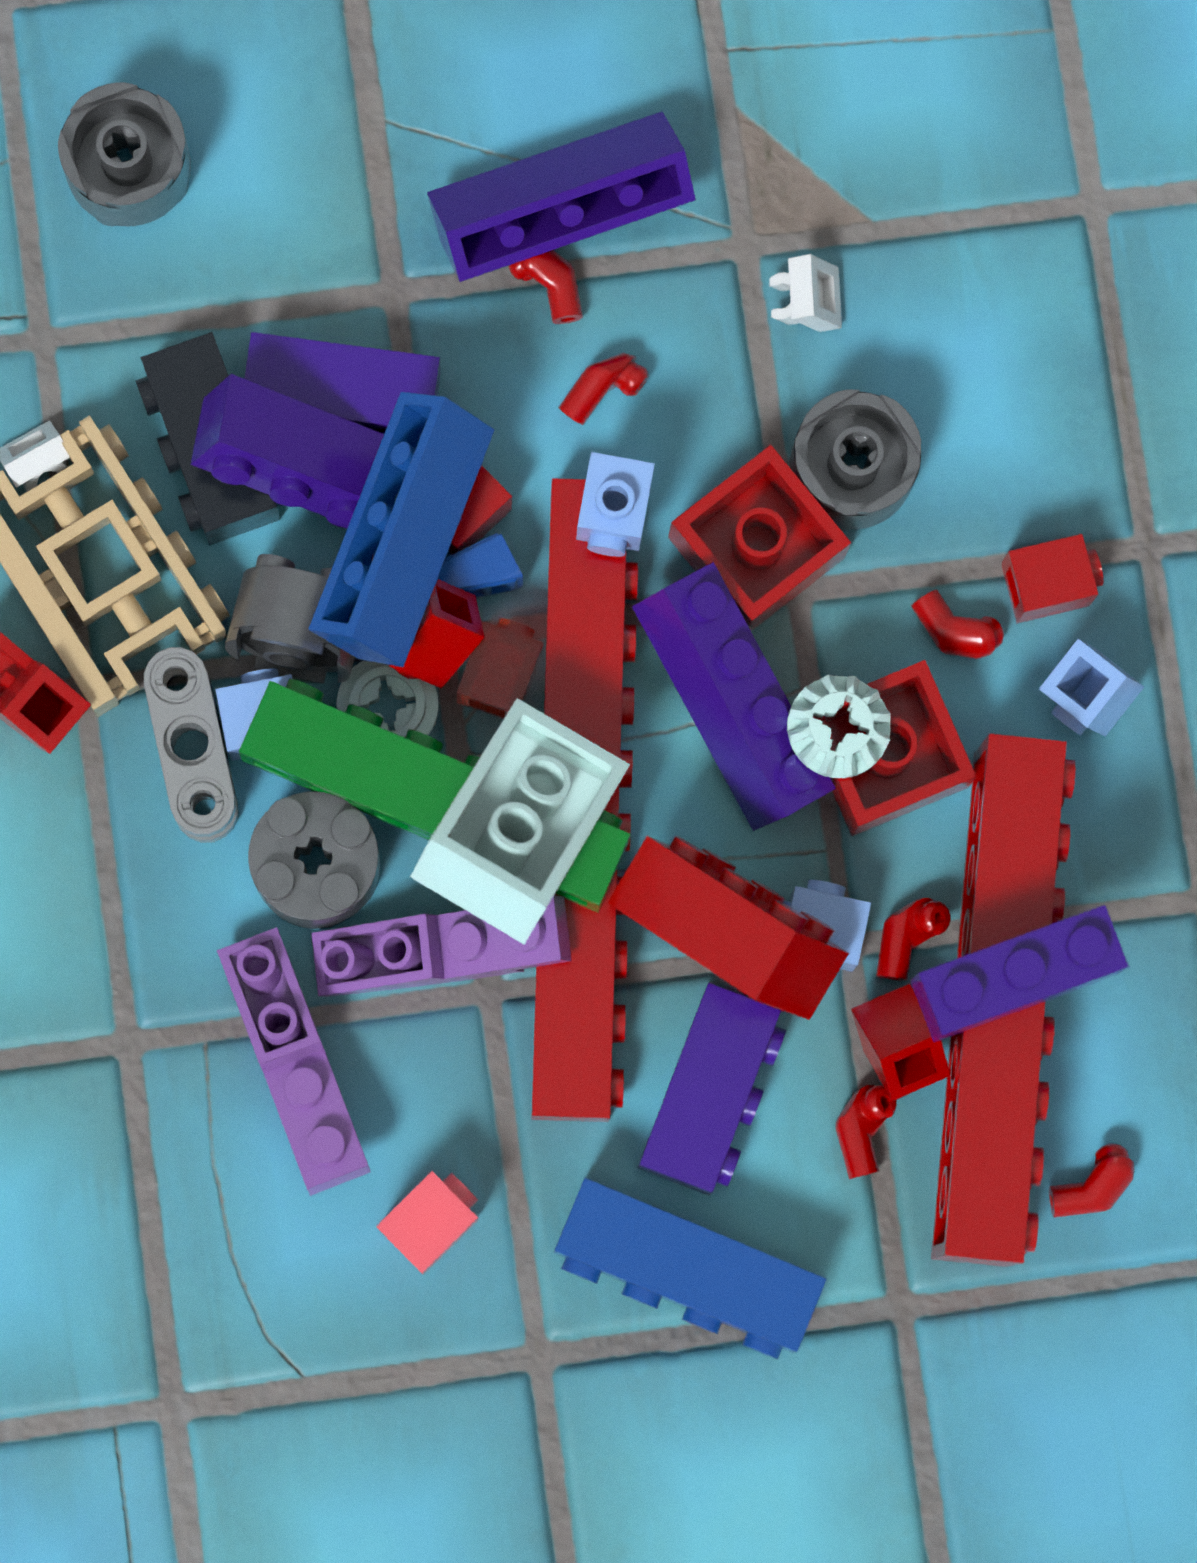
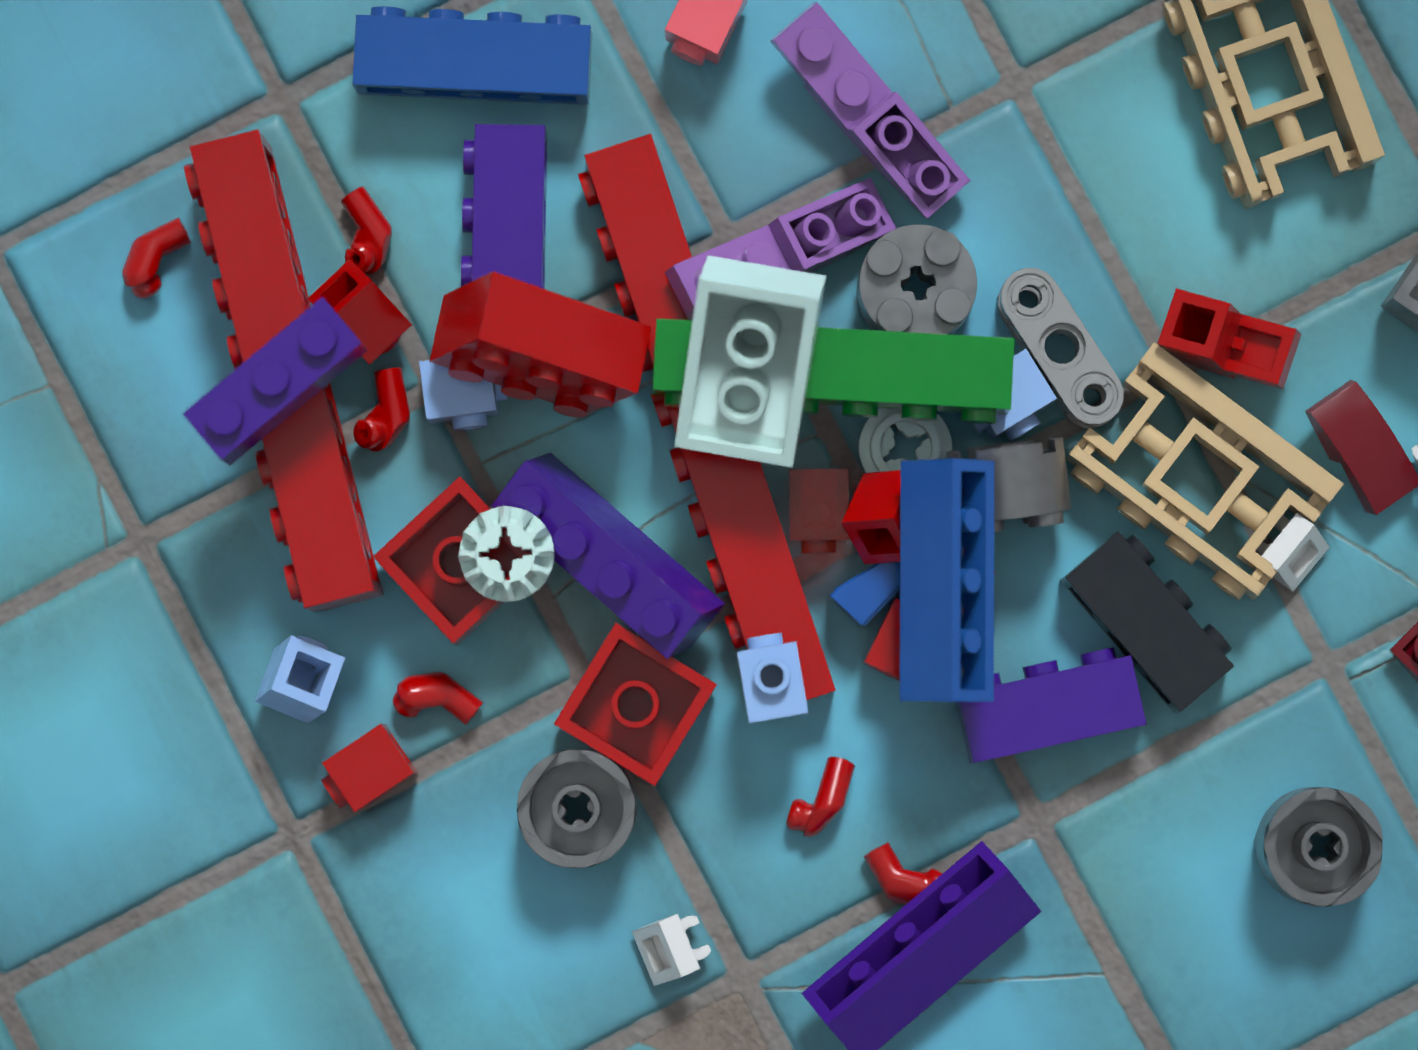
camera: 170 degrees right, 5 degrees up
(284, 448) = (1075, 625): dark purple brick -> none

